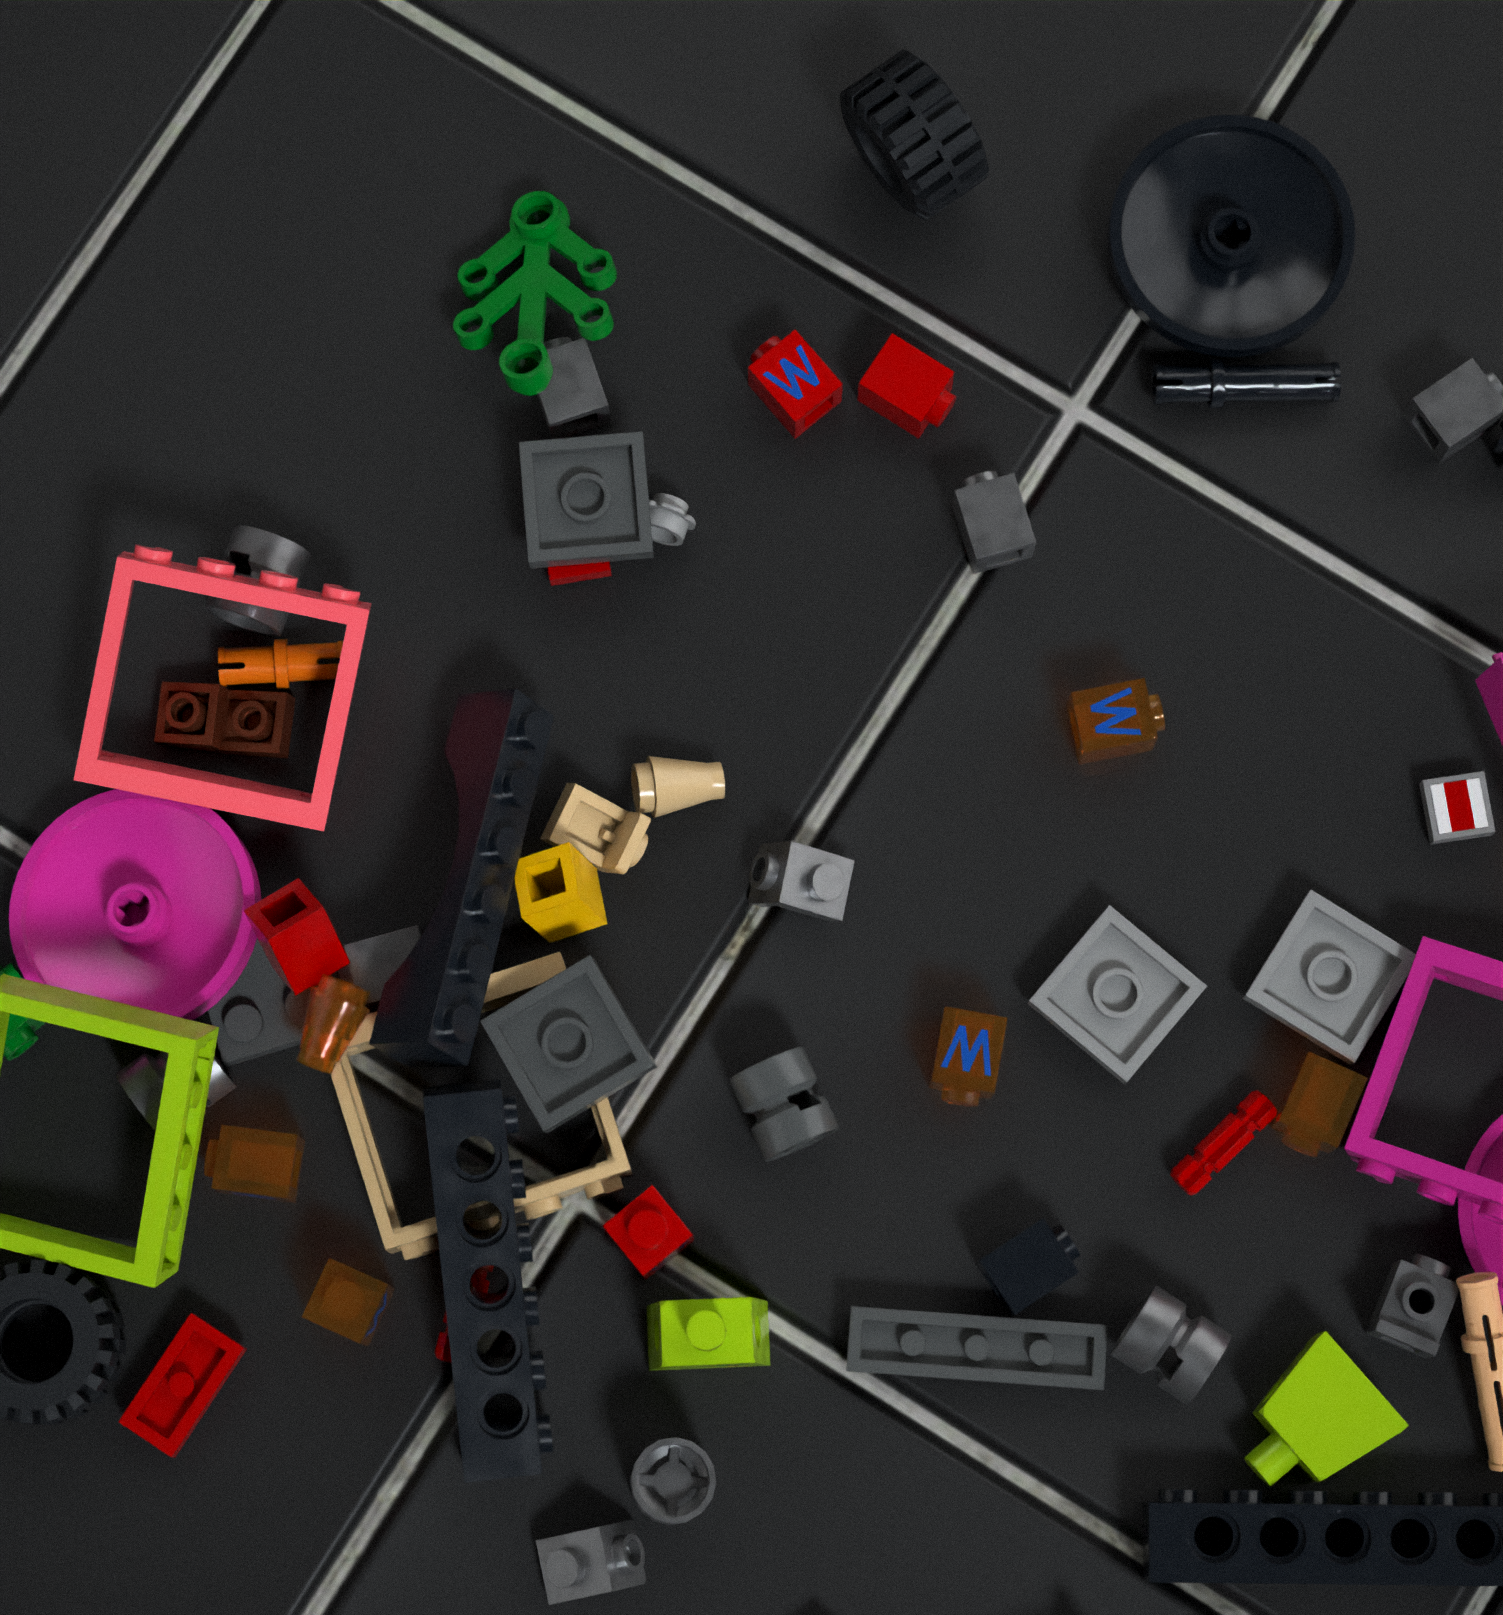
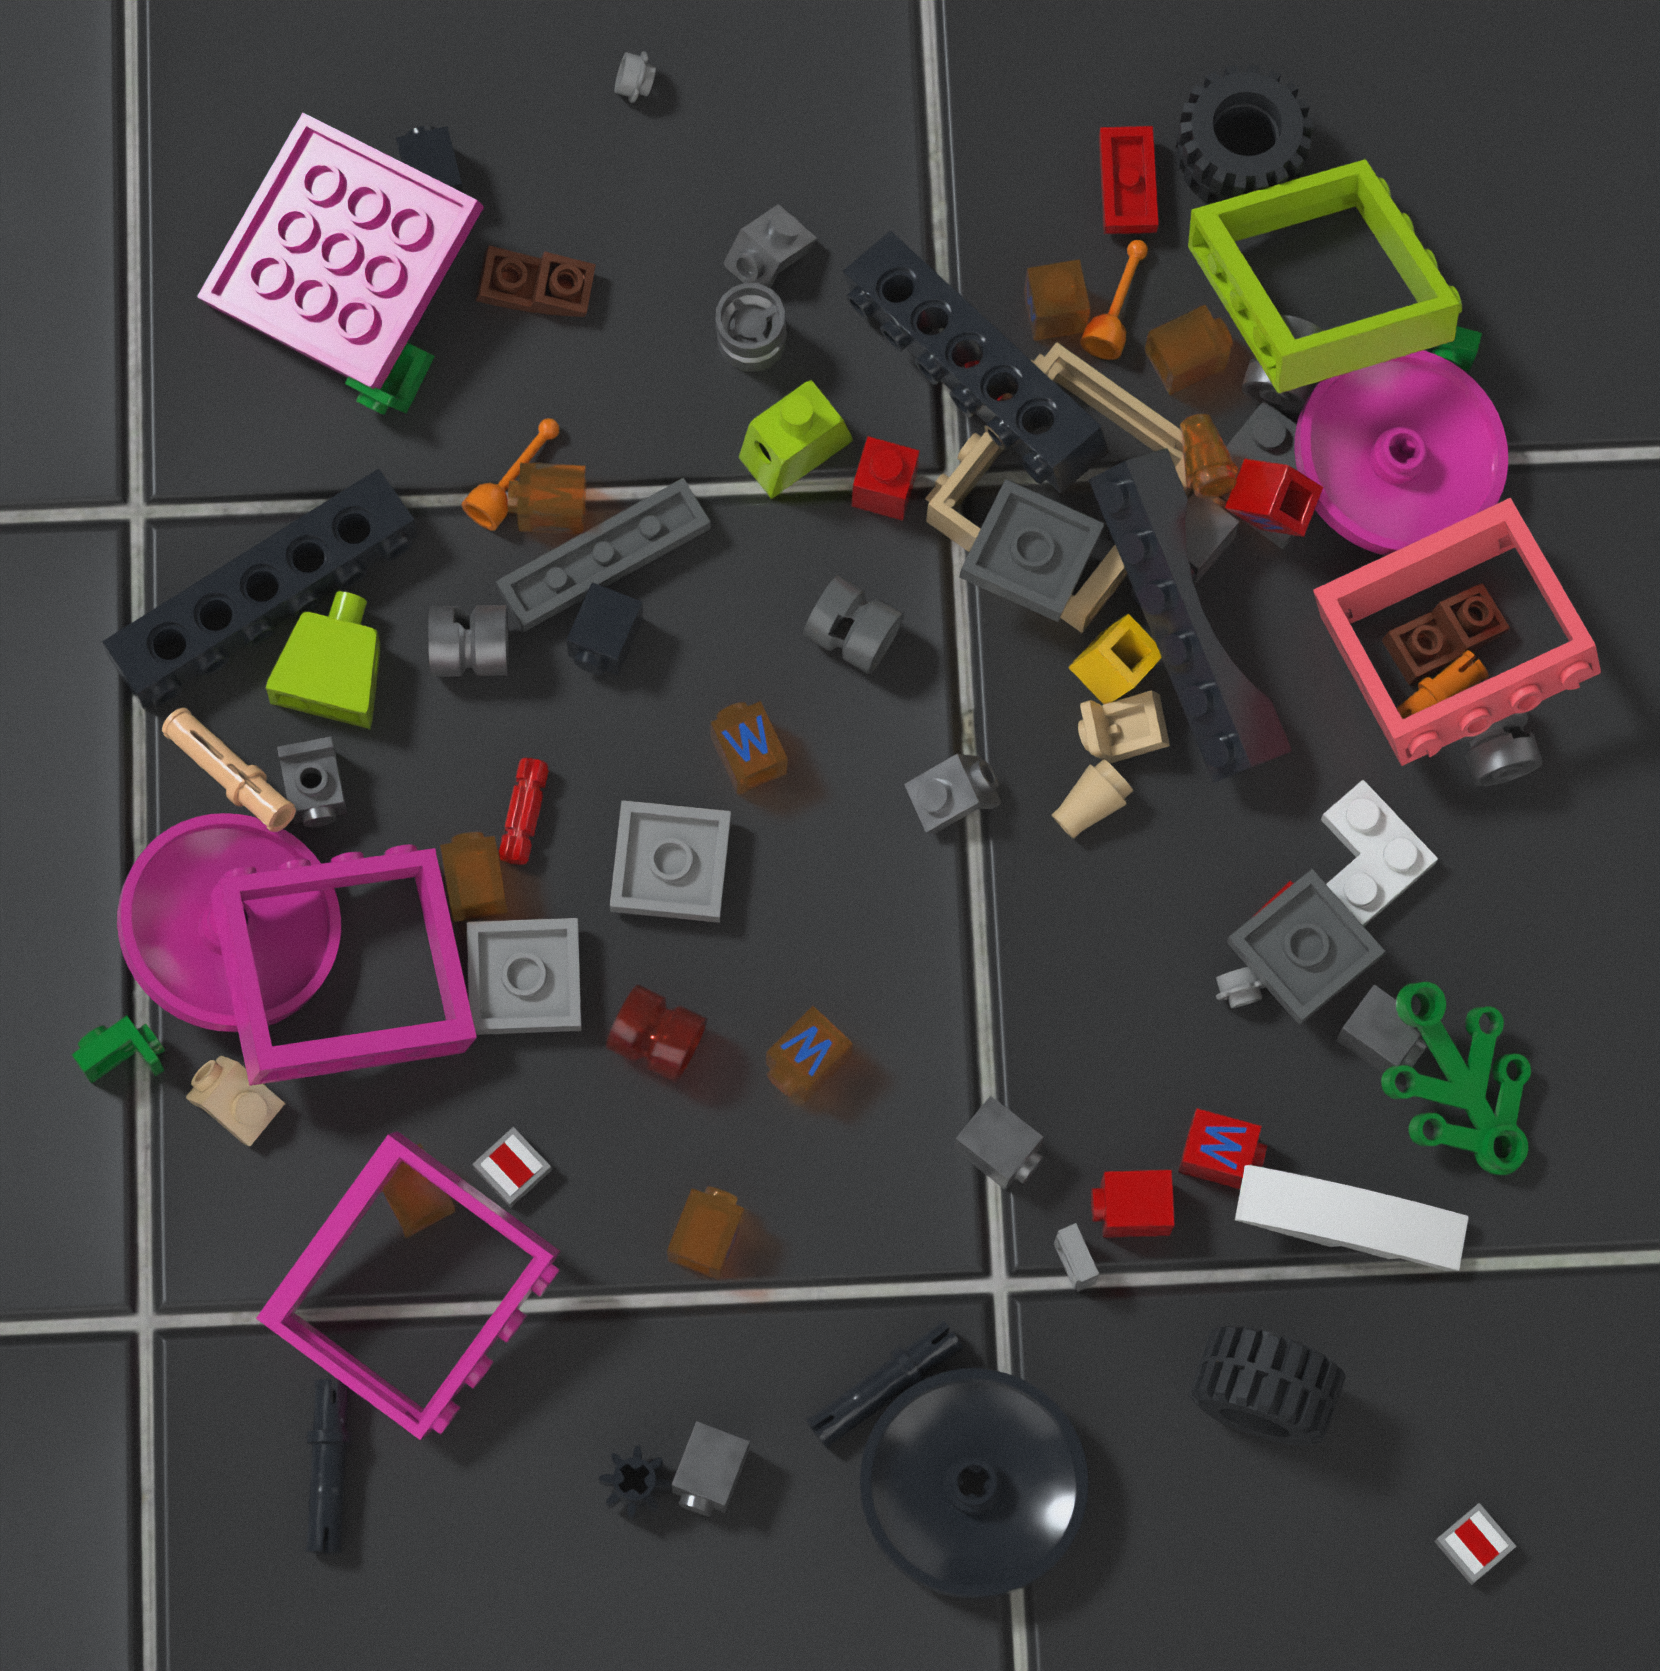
camera: 140 degrees right, 5 degrees down
(321, 1238) = (1105, 333): none -> orange hinge
(441, 547) = (1385, 853): none -> white plate
(725, 241) = (1351, 1218): none -> white slope
(993, 1442) = (549, 498): none -> clear orange brick
(995, 375) = (1076, 1257): none -> light grey tile
(1050, 1482) = (488, 501): none -> orange hinge
(1244, 832) = (667, 1050): none -> clear red wheel
(1318, 621) = (706, 1231): none -> clear orange brick

